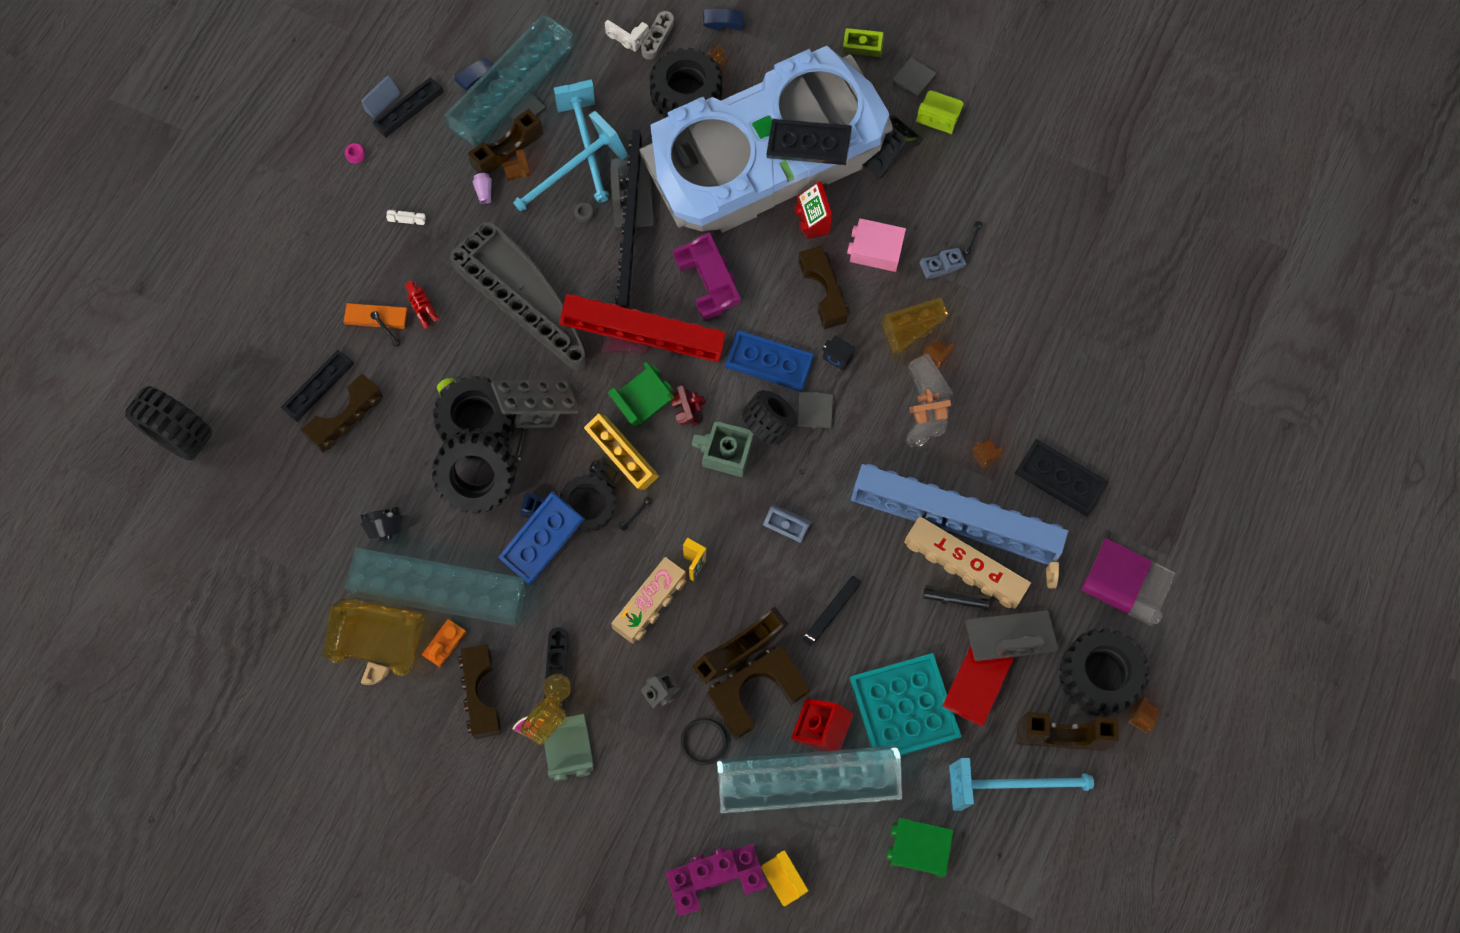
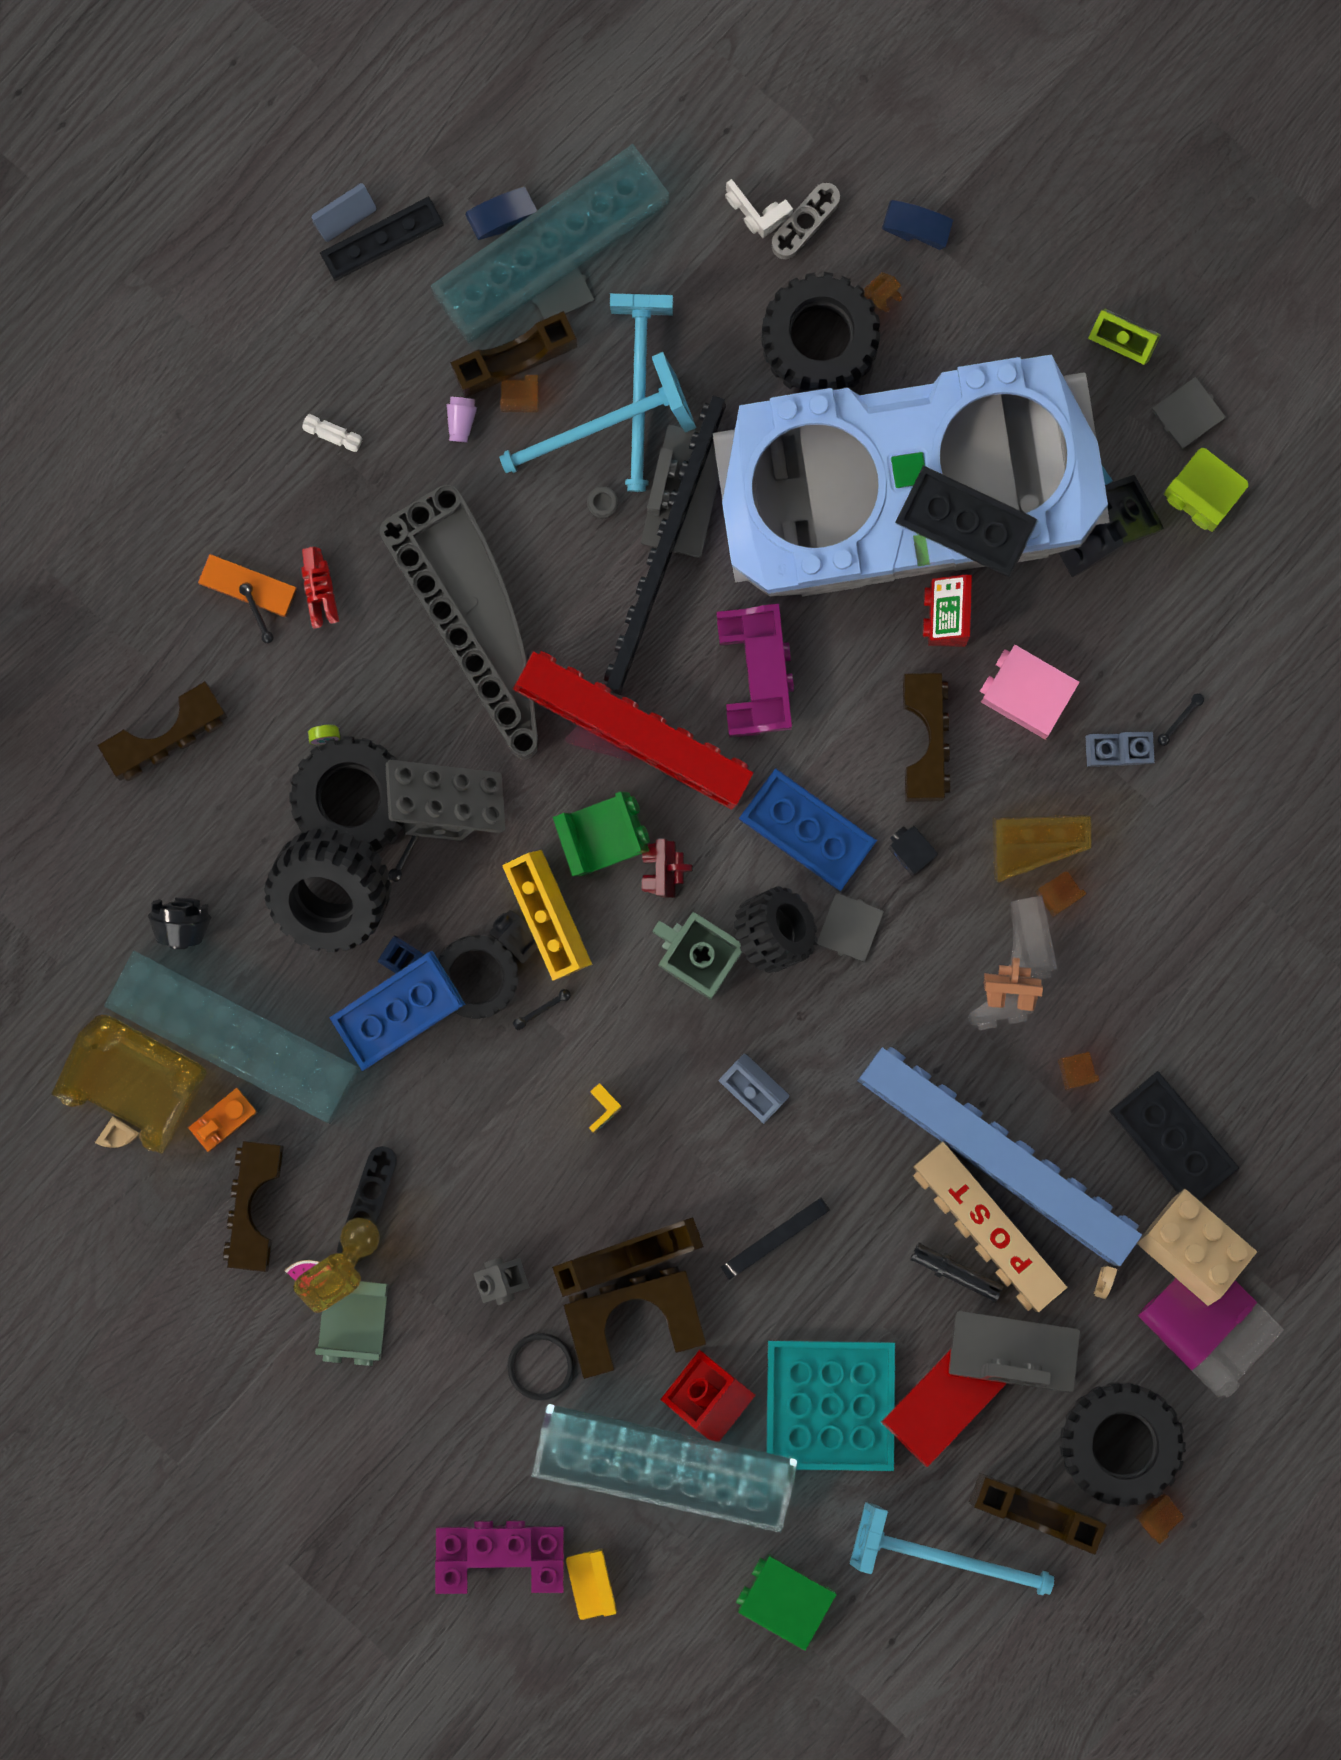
camera: 20 degrees right, 15 degrees up
(317, 385) = (136, 673): black tile -> none
(354, 153) = (281, 297): dark pink tile -> none
(648, 600) = (523, 1146): tan brick -> none
(1102, 534) = (1196, 1247): none -> tan brick

